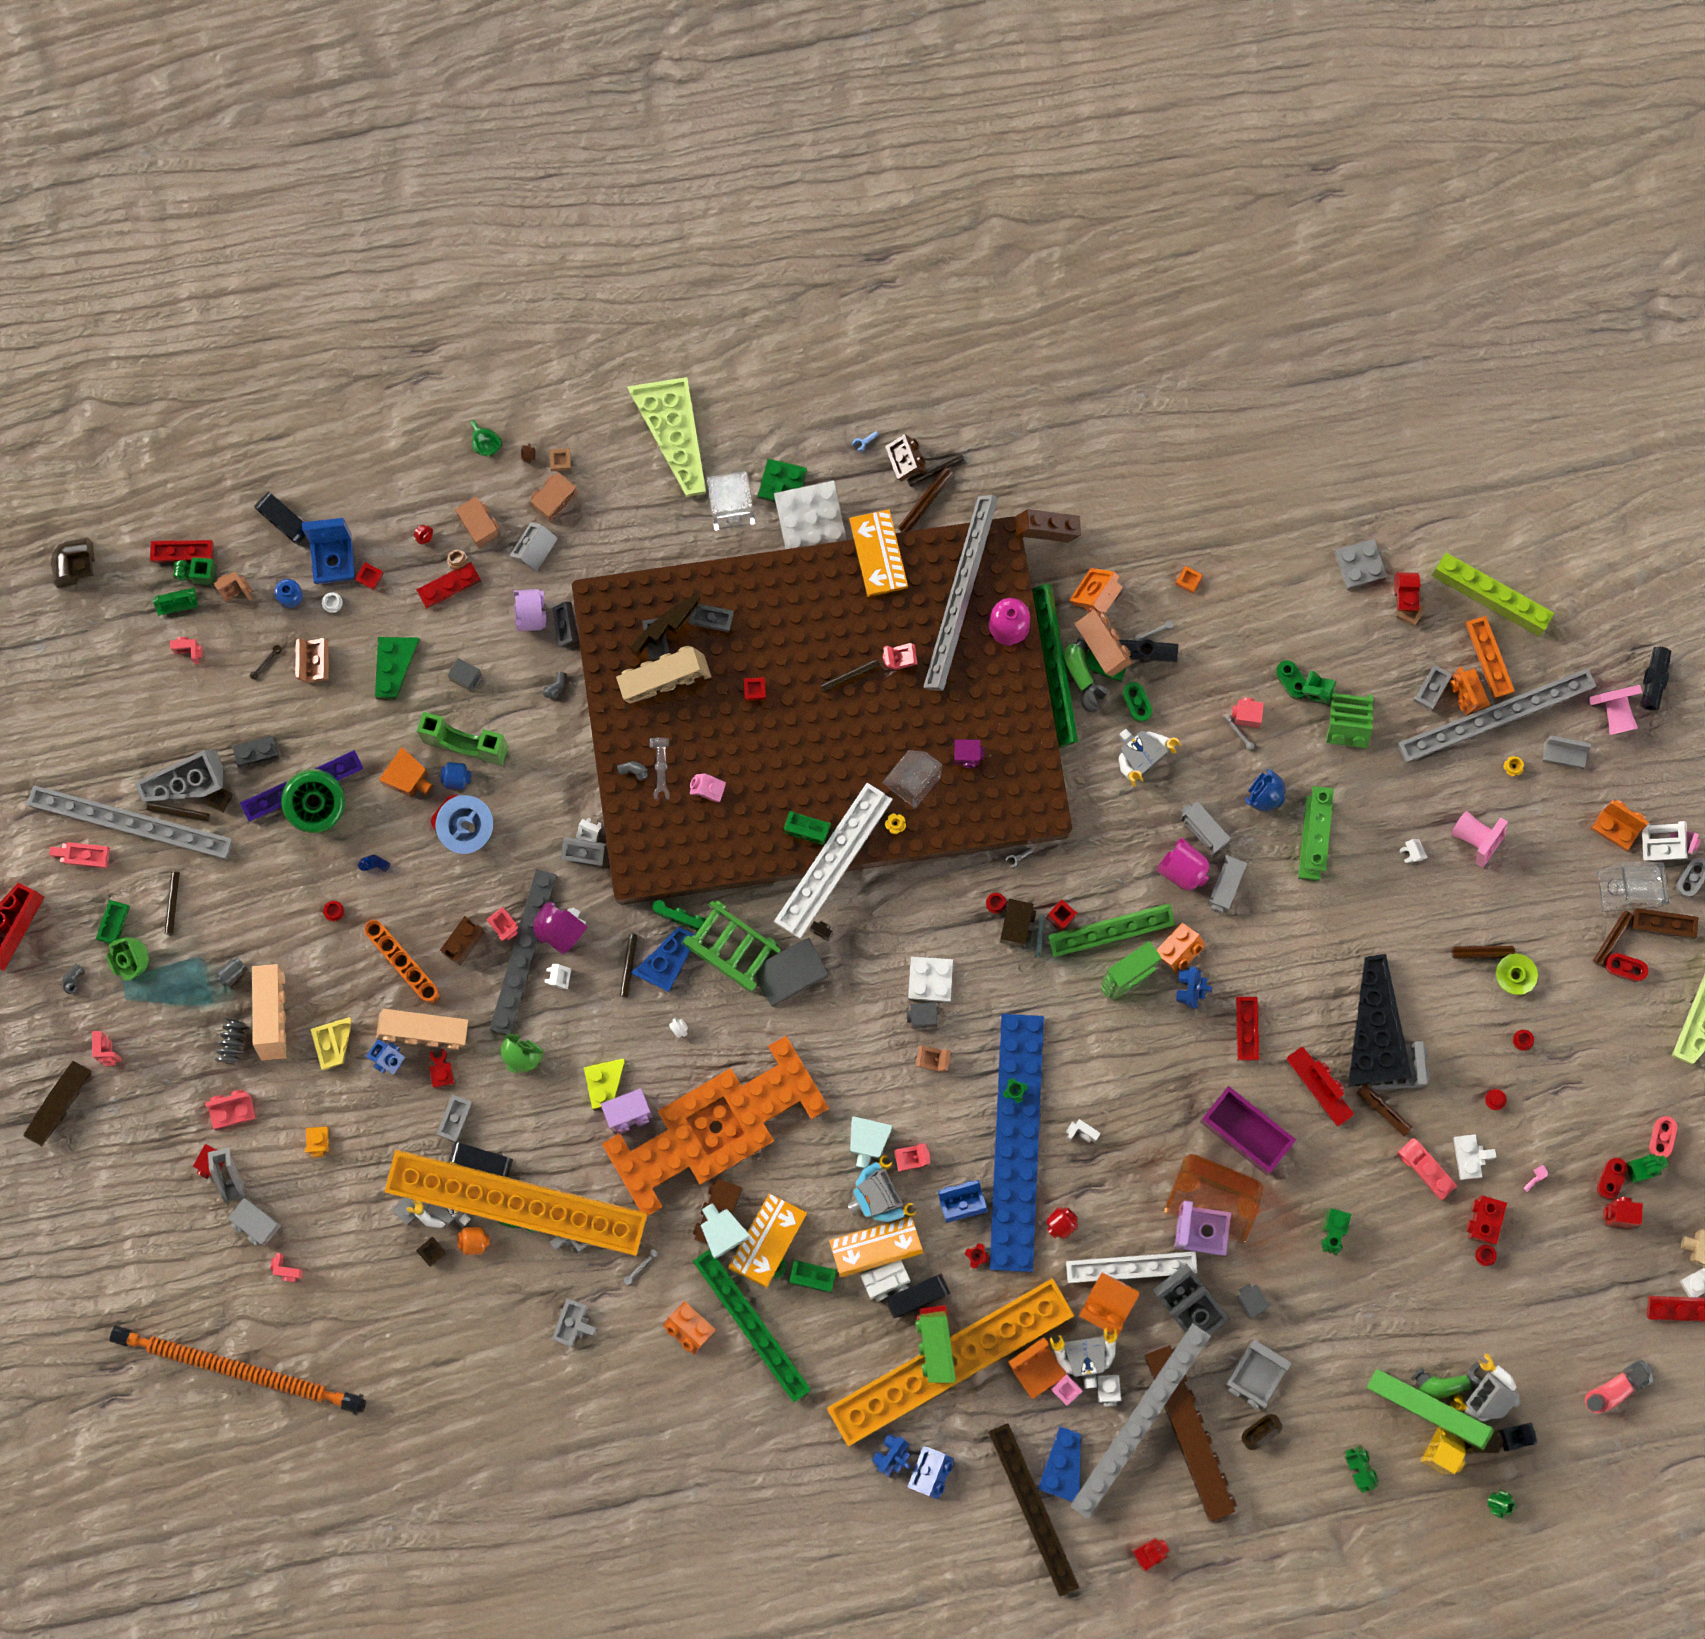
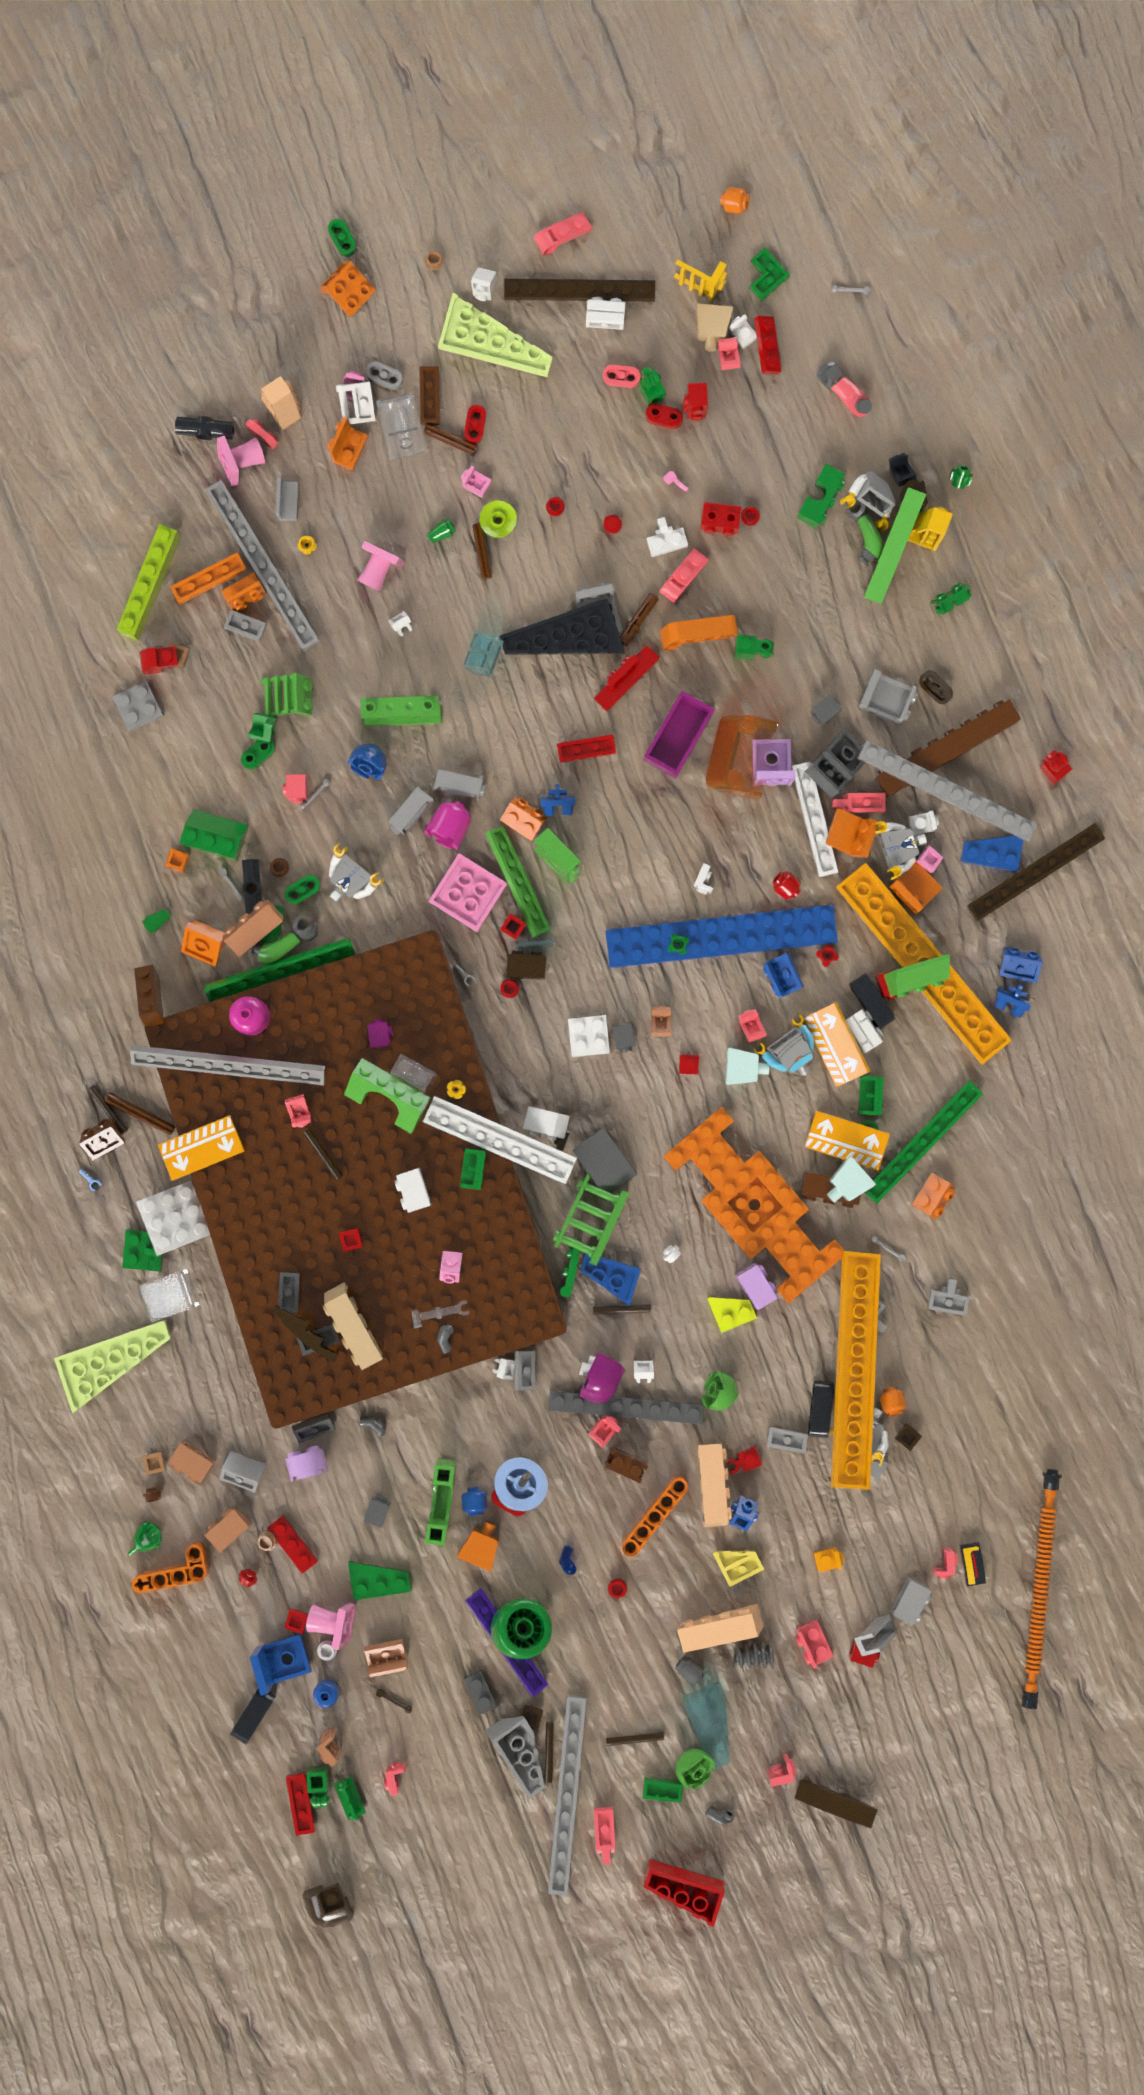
camera: 100 degrees left, 10 degrees up
(279, 1298) = (972, 1564): none -> slope
(358, 617) = (333, 1623): none -> bright pink plant
(444, 458) = (169, 1573): none -> orange beam
(795, 760) = (413, 1190): none -> white brick
(843, 915) = (546, 1123): none -> white brick
(881, 1082) = (688, 1064): none -> red plate
(887, 769) = (408, 1100): none -> bright green arch
(1107, 875) = (468, 892): none -> bright pink plate
(1127, 547) = (156, 920): none -> green cone
(1142, 1323) = (861, 803): none -> coral hinge
(1165, 682) = (279, 867): none -> reddish brown plate
(1210, 620) = (214, 835): none -> green slope
(1362, 1173) = (698, 630): none -> orange beam
(1366, 933) = (484, 654): none -> clear light blue piece
(1481, 1329) = (814, 511): none -> green arch
(1511, 912) = (441, 531): none -> green cone
(1561, 956) = (475, 482): none -> bright pink bracket
(1637, 742) = (256, 429): none -> coral plate
(1671, 758) = (281, 402): none -> light nougat wedge
(1675, 1261) = (728, 353): none -> coral bracket

